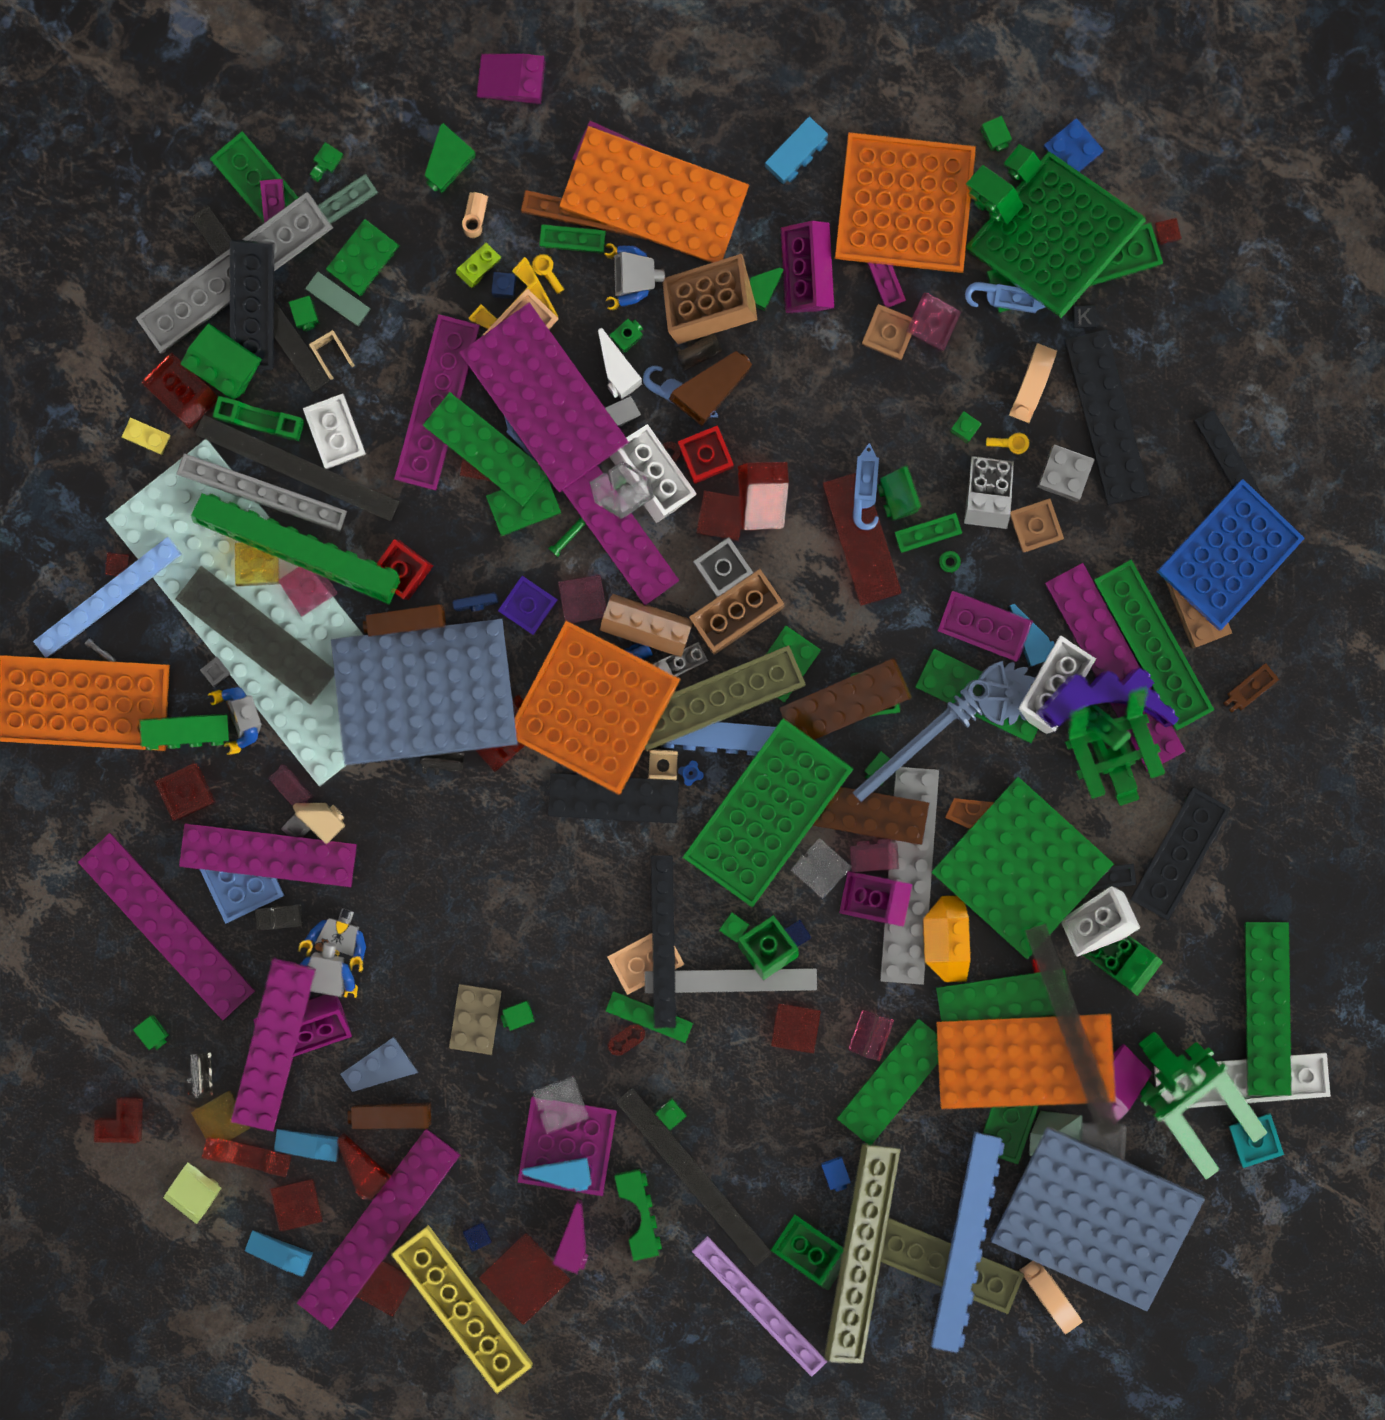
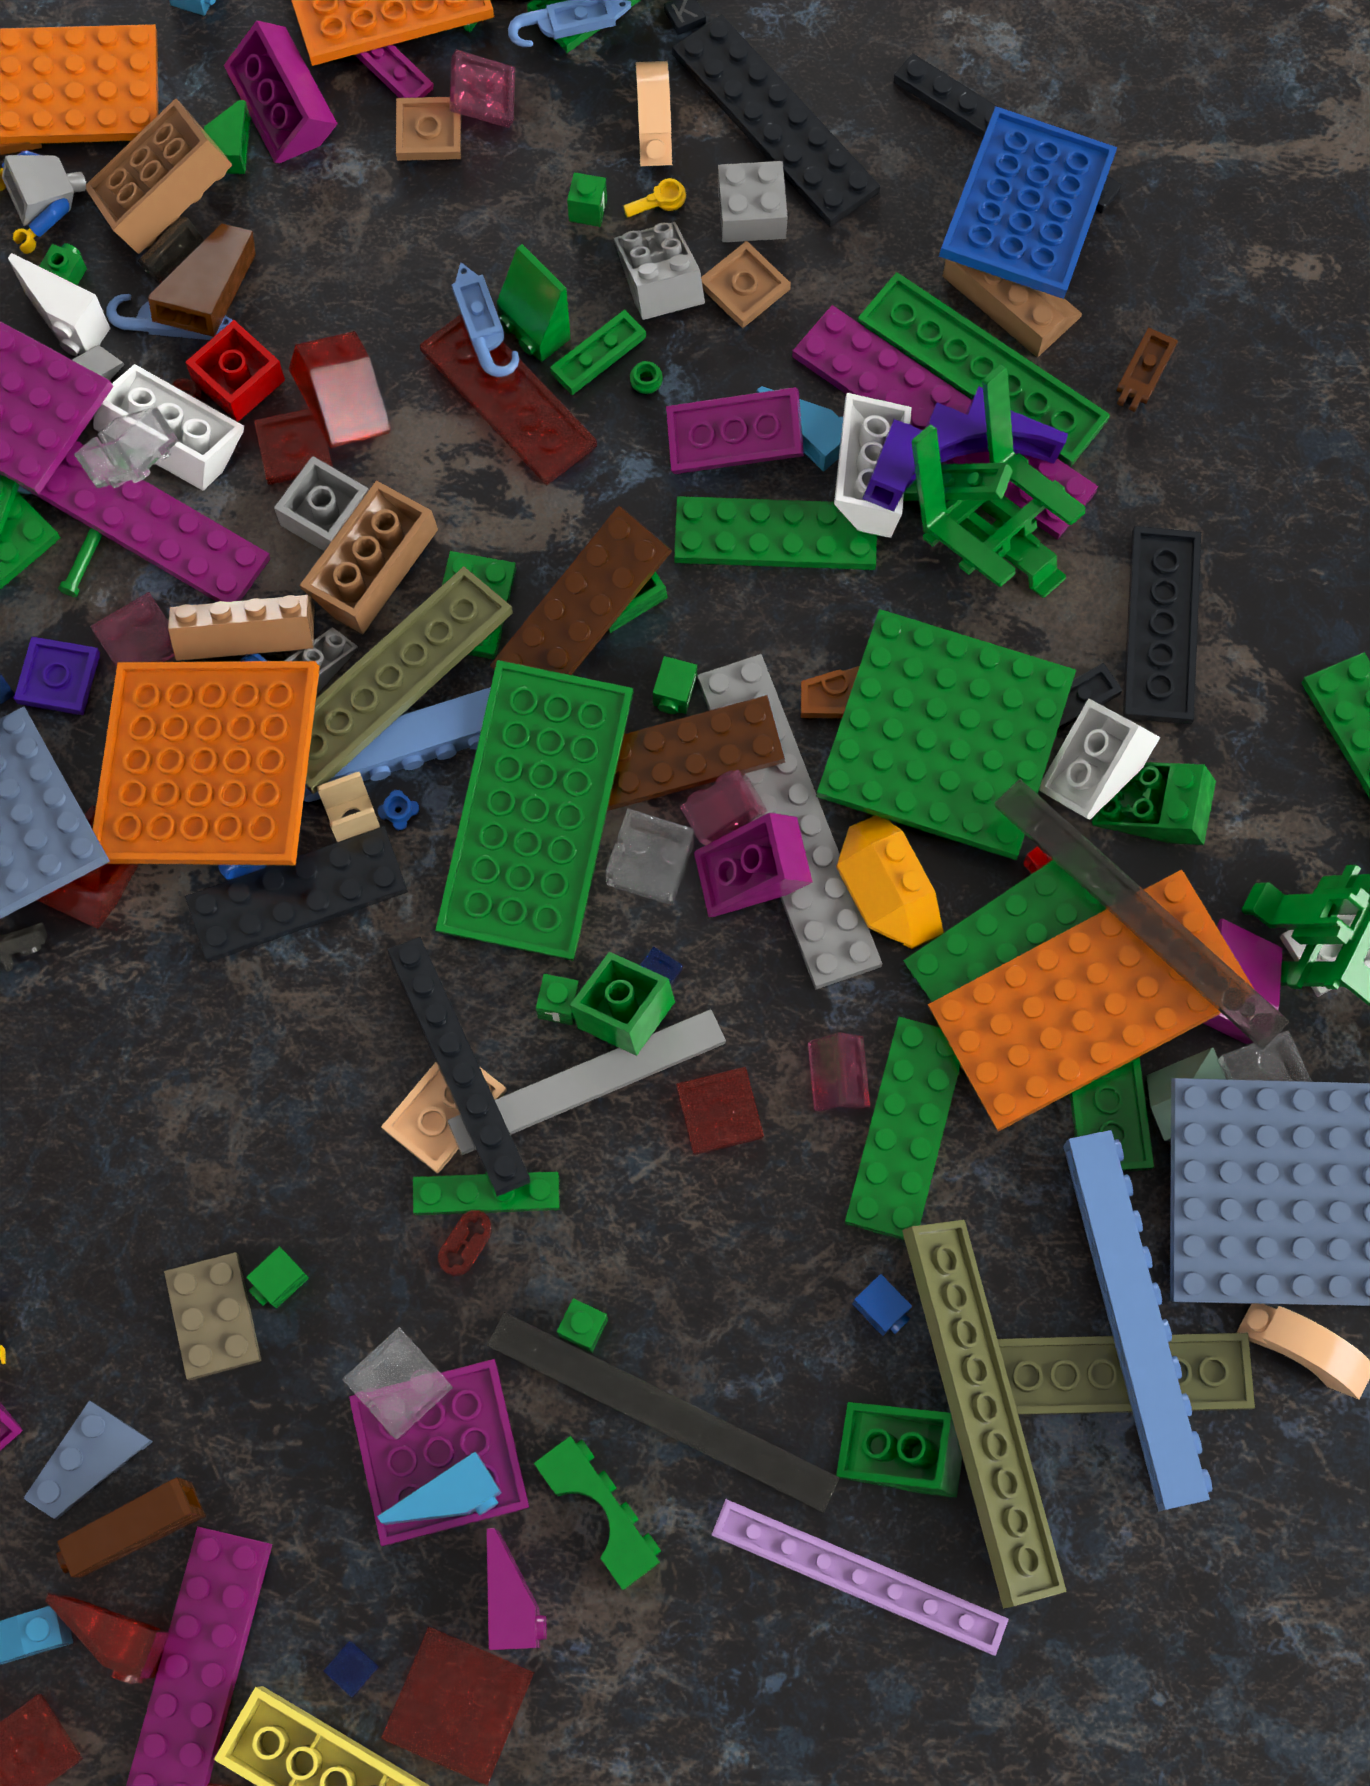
camera: 20 degrees left, 15 degrees down
(1000, 699) = (801, 518): sand blue piece -> none

